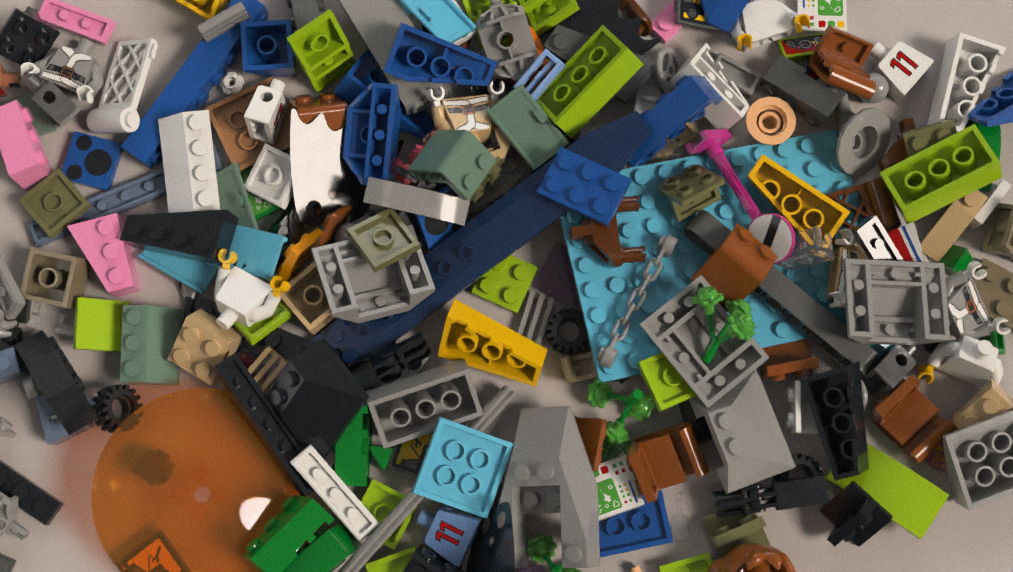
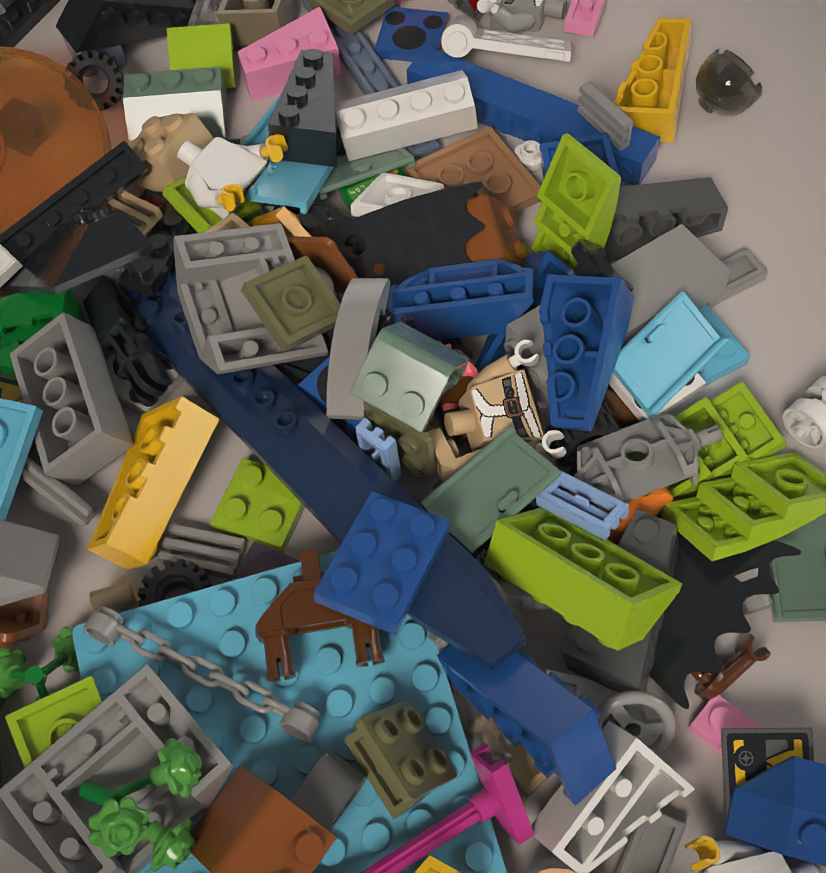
camera: 90 degrees right, 20 degrees down
(266, 112) = (490, 164): white torso -> none
(372, 43) = (593, 261): none -> black piece
(490, 198) = (379, 449): none -> light blue tile

